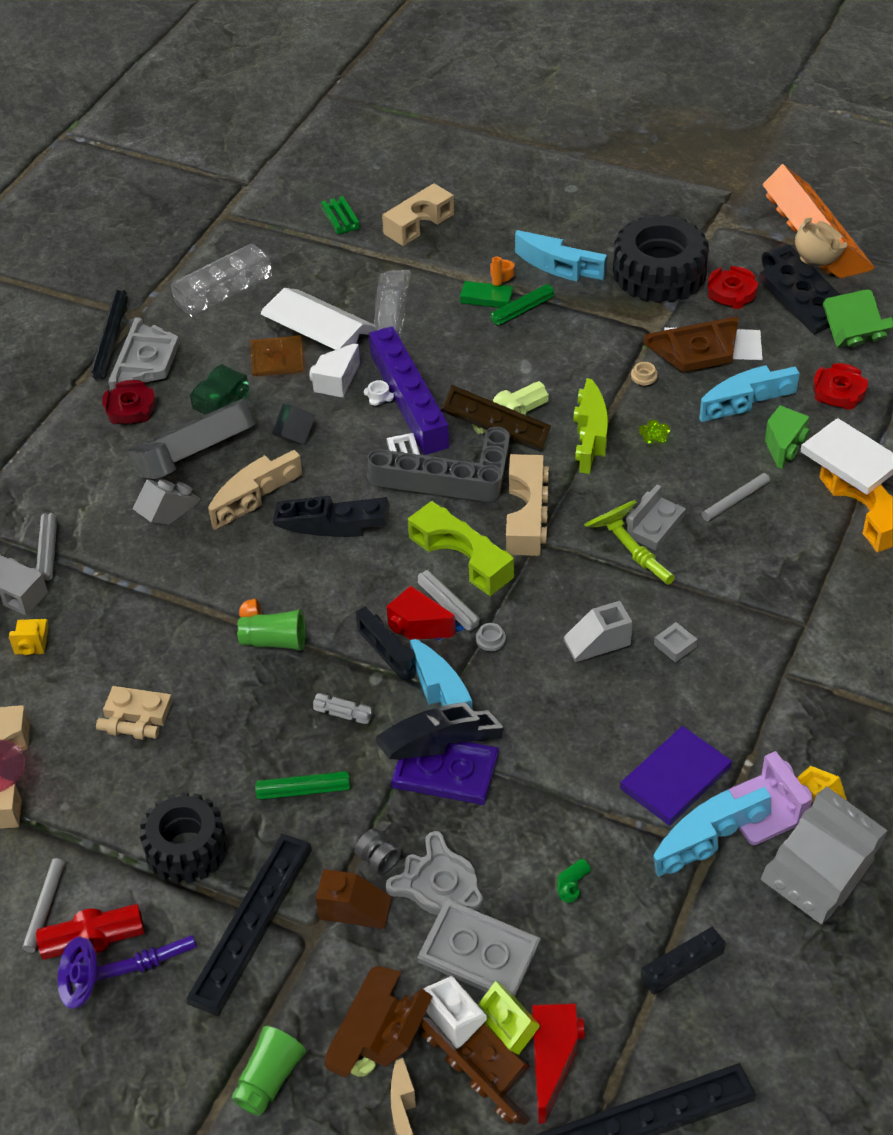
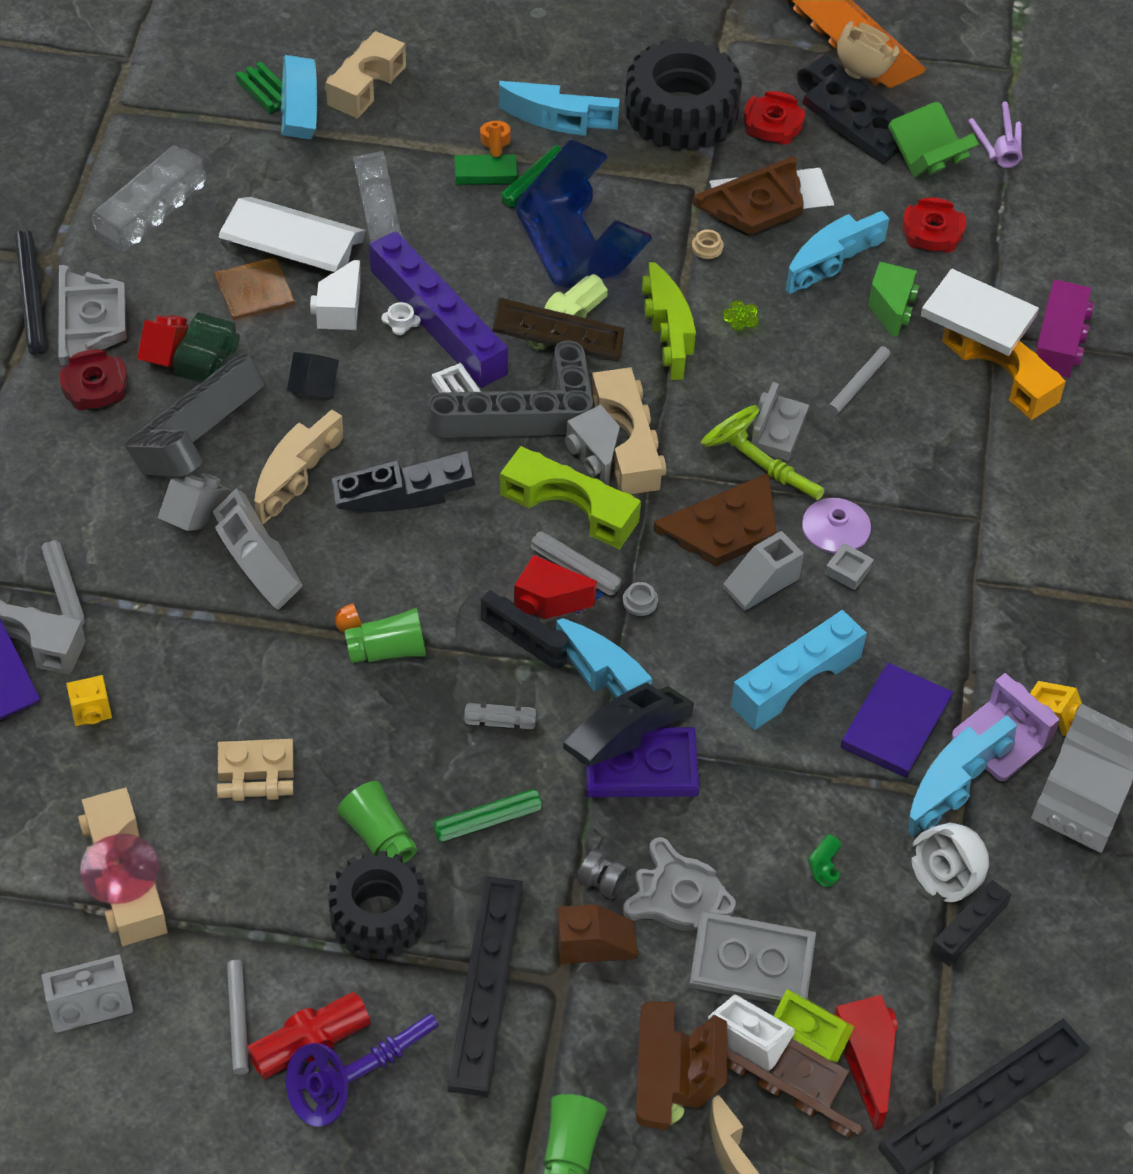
camera: 20 degrees left, 5 degrees up
(185, 378) = (161, 339): none -> red slope
(196, 547) = (255, 550): none -> light grey slope
(208, 771) = (376, 821): none -> bright green plant
(359, 223) = (299, 97): none -> medium azure slope
(493, 505) = (593, 440): none -> light grey slope
(528, 341) = (555, 224): none -> clear blue windscreen
(569, 726) = (770, 685): none -> medium azure arch
(580, 589) = (724, 523): none -> reddish brown wing
(678, 605) = (828, 533): none -> lavender dish
(679, 902) = (950, 861): none -> white cylinder

